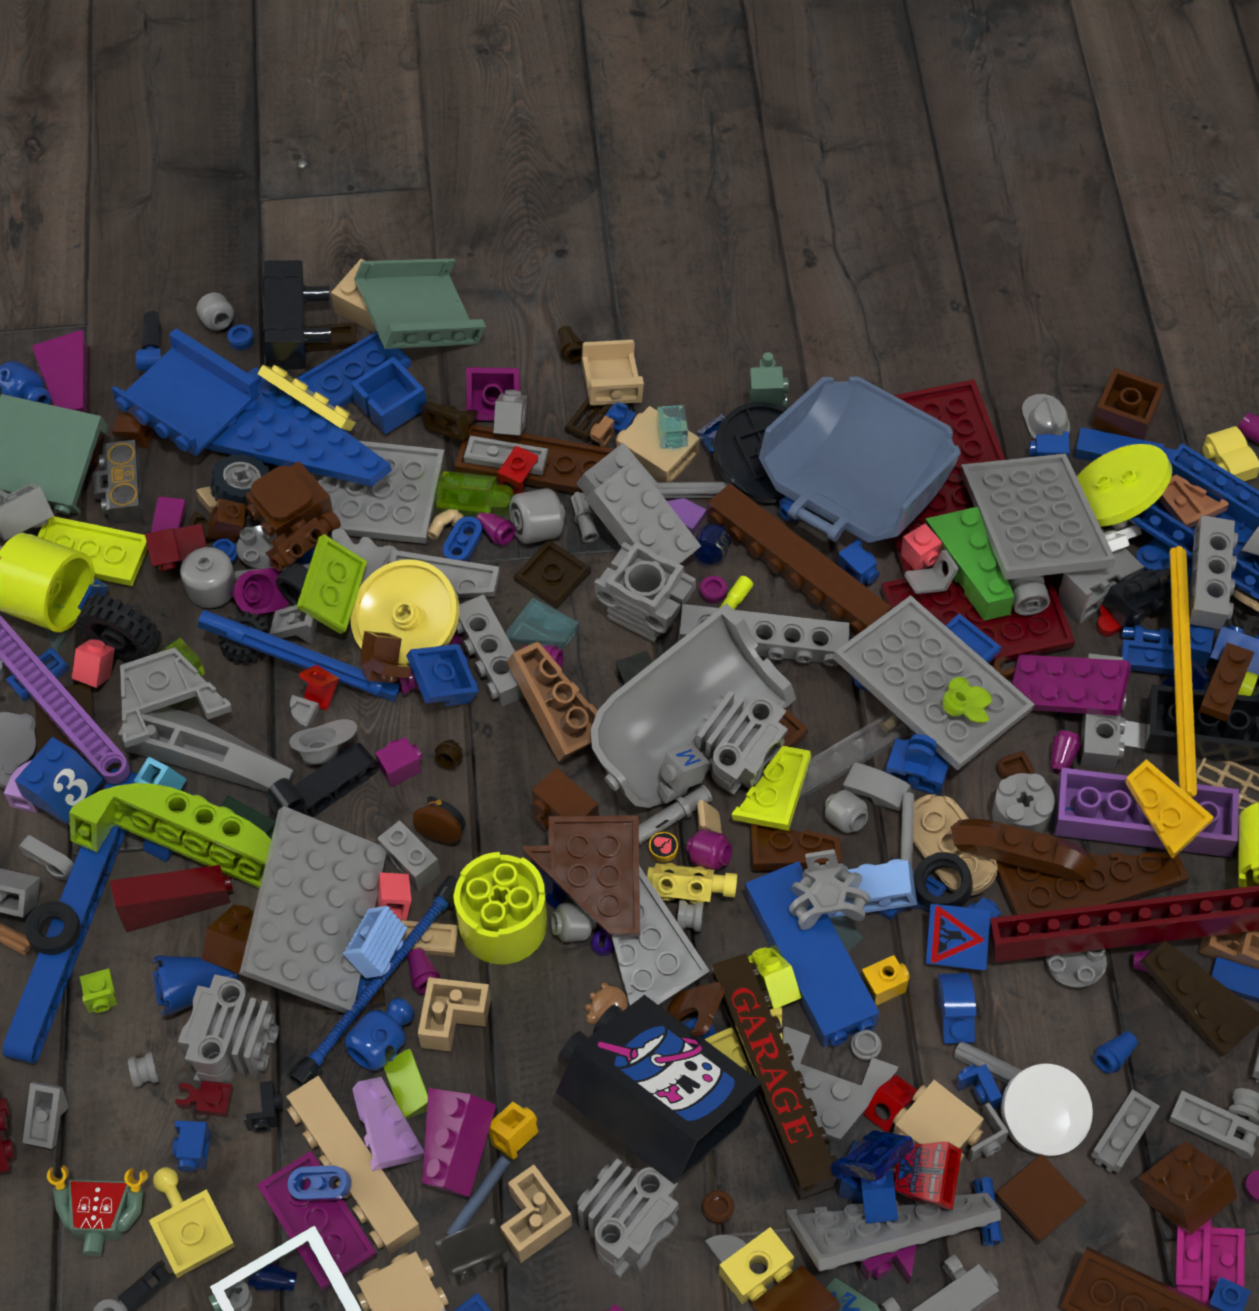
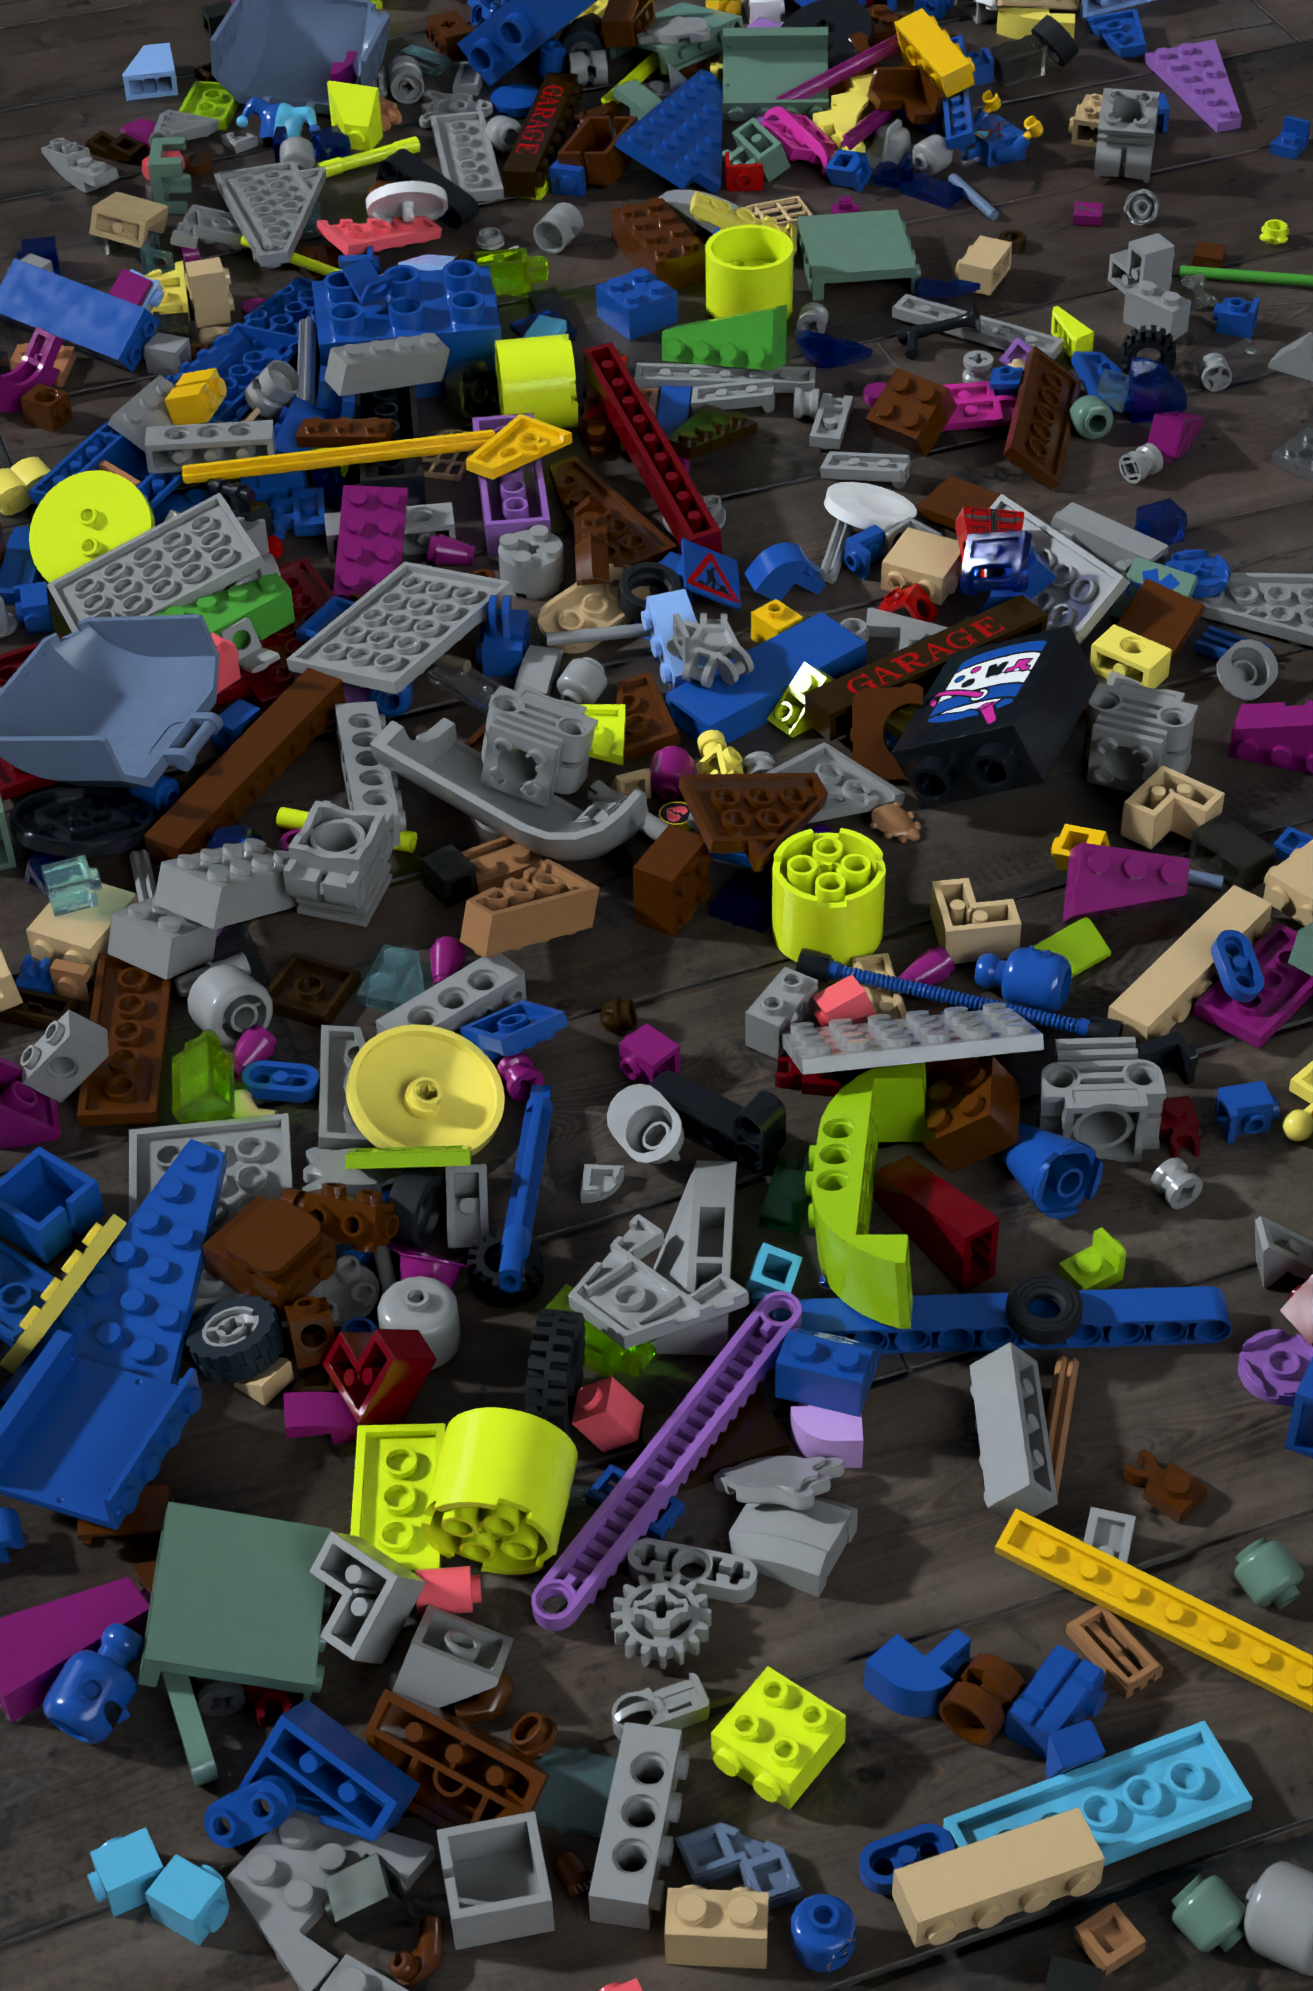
camera: 105 degrees left, 15 degrees down
(54, 861) = (933, 1376): light grey piece -> none
(124, 492) = (272, 1486): flat silver piece -> none
(320, 685) = (562, 1156): red bracket -> none
(375, 942) = (921, 987): light blue brick -> none
(381, 656) = (513, 1091): reddish brown brick -> none
(386, 1127) = (1124, 951): lavender wing -> none
(439, 821) = (722, 991): reddish brown piece -> none
(448, 420) = (82, 1128): dark brown tile -> none
(495, 452) = (131, 1058): light grey tile -> none
(517, 468) = (157, 1032): red bracket -> none
(684, 767) = (579, 793): light grey brick -> none
(966, 700) = (425, 586): lime plate -> none
(1115, 1052) = (787, 481): blue cone -> none

